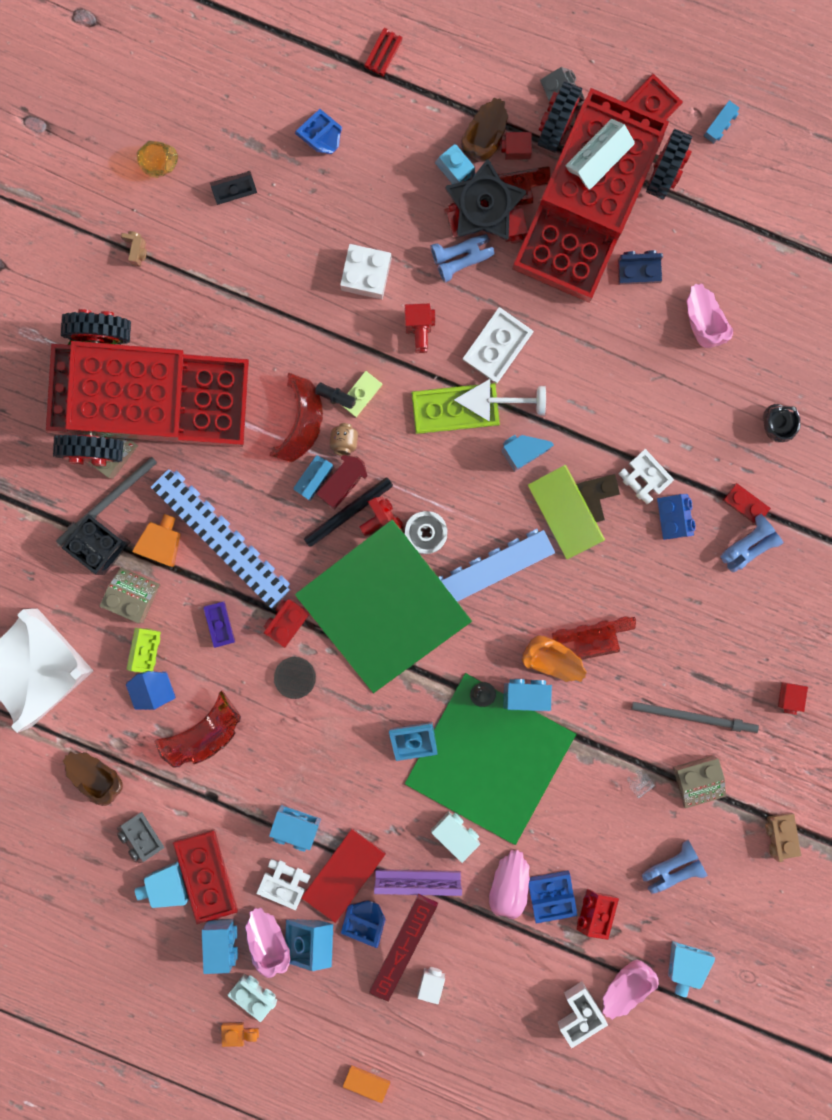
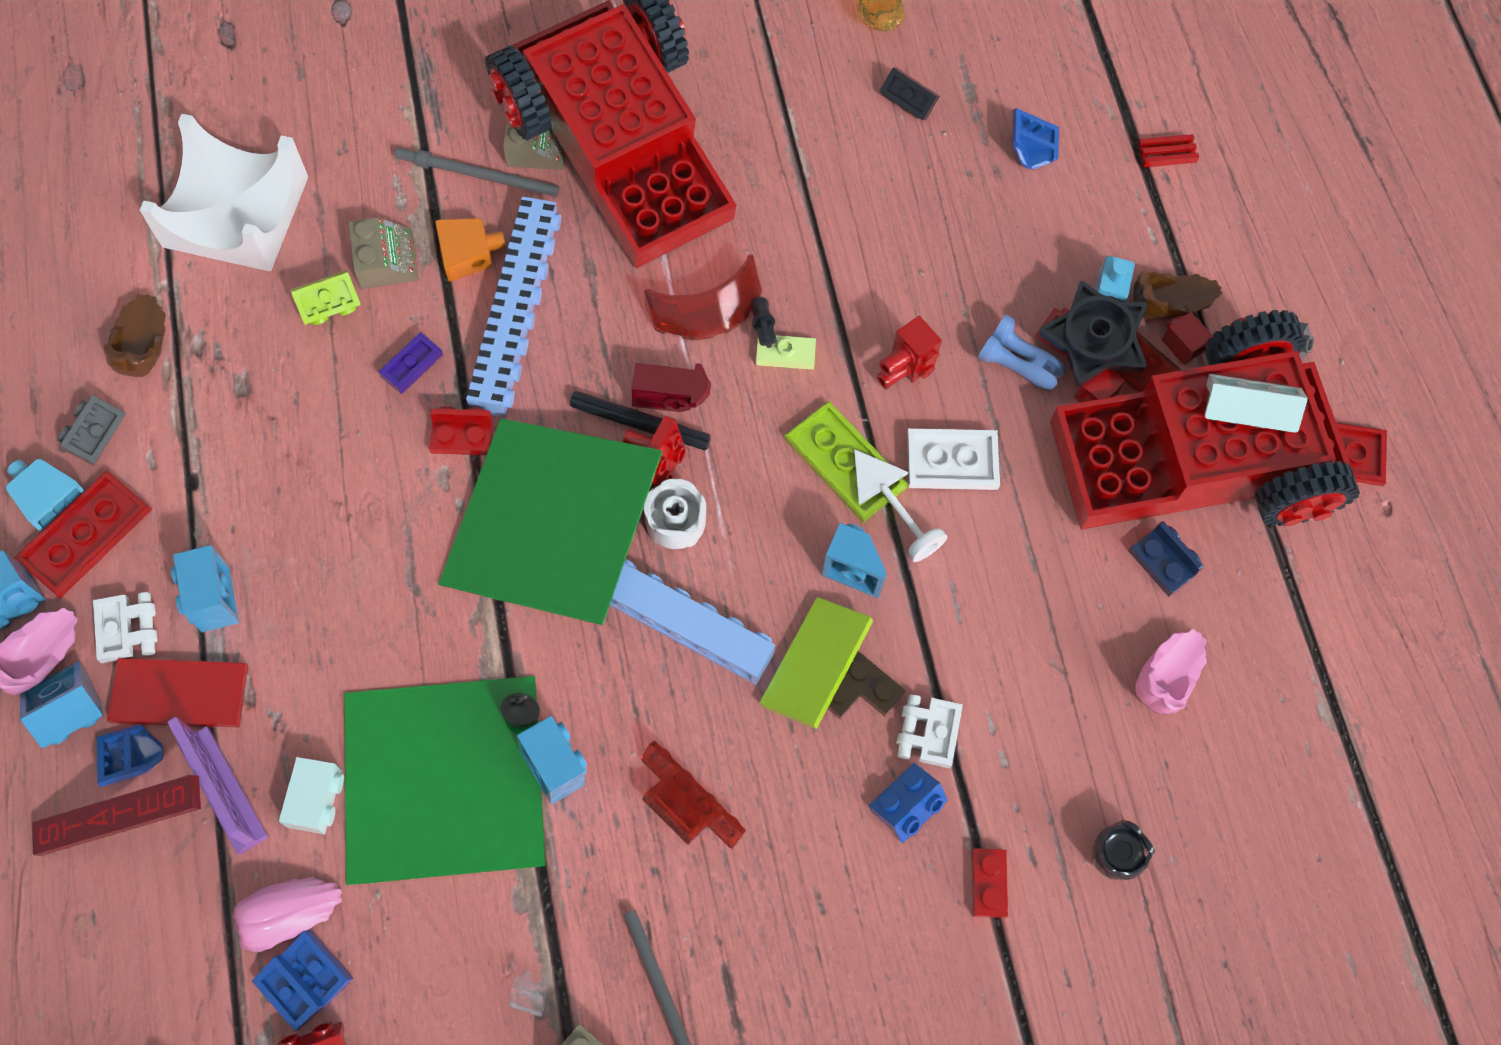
camera: 55 degrees right, 20 degrees down
(96, 544) = (418, 181): black brick -> none
(138, 251) = (774, 43): medium nougat bracket -> none
(150, 690) = (285, 336): blue slope -> none
(202, 739) = (255, 428): clear red windscreen -> none
(295, 677) = (400, 484): clear smoke tile -> none
(313, 477) = (651, 354): dark azure bracket -> none
(343, 439) = (720, 360): medium nougat head -> none
(365, 271) = (924, 270): white piece -> none
(413, 741) = (406, 664): dark azure slope -> none
(431, 985) = (85, 895): white brick -> none
(553, 659) = (621, 764): orange hair -> none
(722, 122) = (1402, 540): dark azure piece -> none
(739, 555) = (923, 925): medium blue piece -> none

